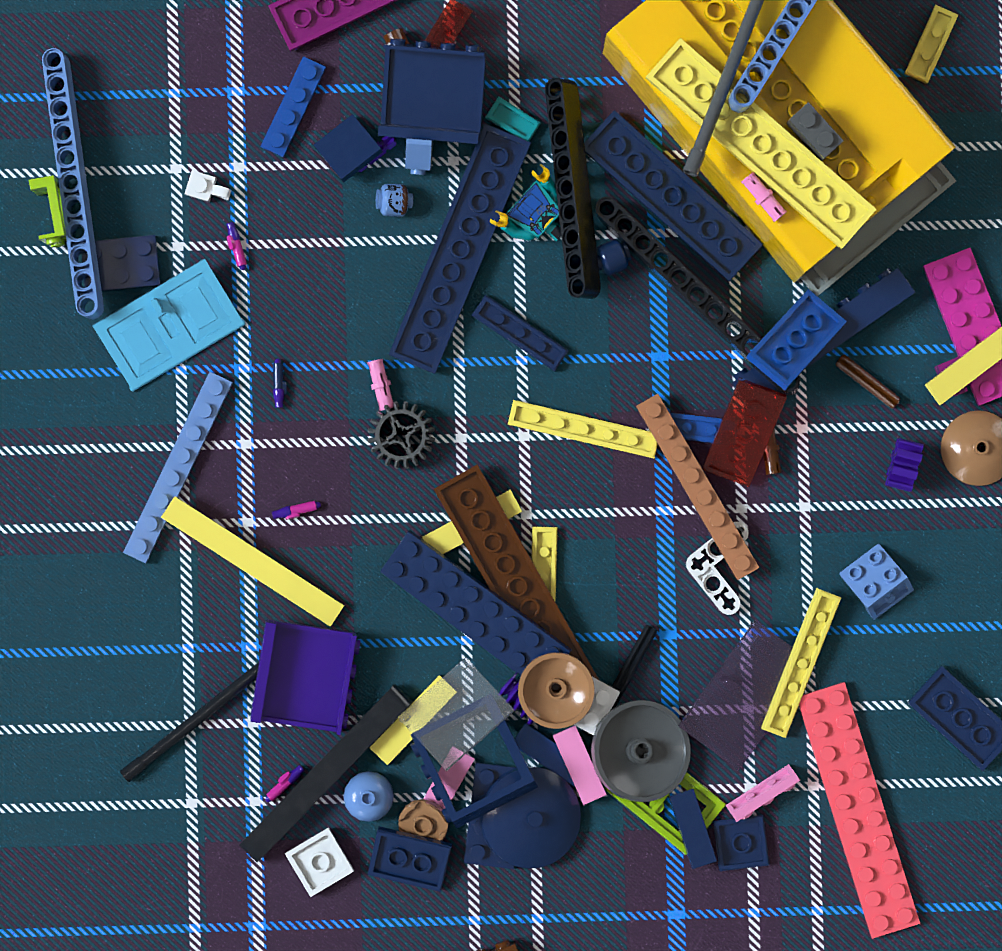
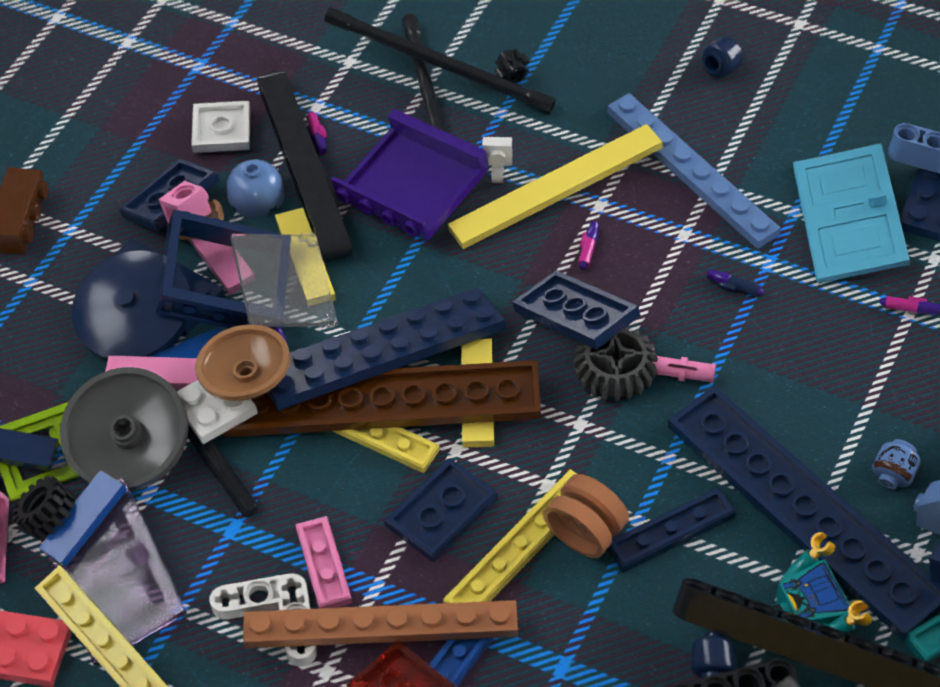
camera: 115 degrees right, 35 degrees down
(48, 494) = (722, 57): none -> dark blue head
(142, 659) = (512, 66): none -> black gear
(166, 628) = (529, 96): none -> black piece
(254, 617) = (498, 155): none -> white plate
(375, 483) = (576, 309): none -> dark blue plate
(432, 822) = (186, 198): none -> bright pink brick
(556, 388) = (586, 515): none -> nougat wheel
(582, 498) = (441, 509): none -> dark blue tile
(665, 555) = (323, 563): none -> bright pink tile
(722, 735) = (84, 518): none -> tile
(726, 757) = (43, 507): none -> black tyre

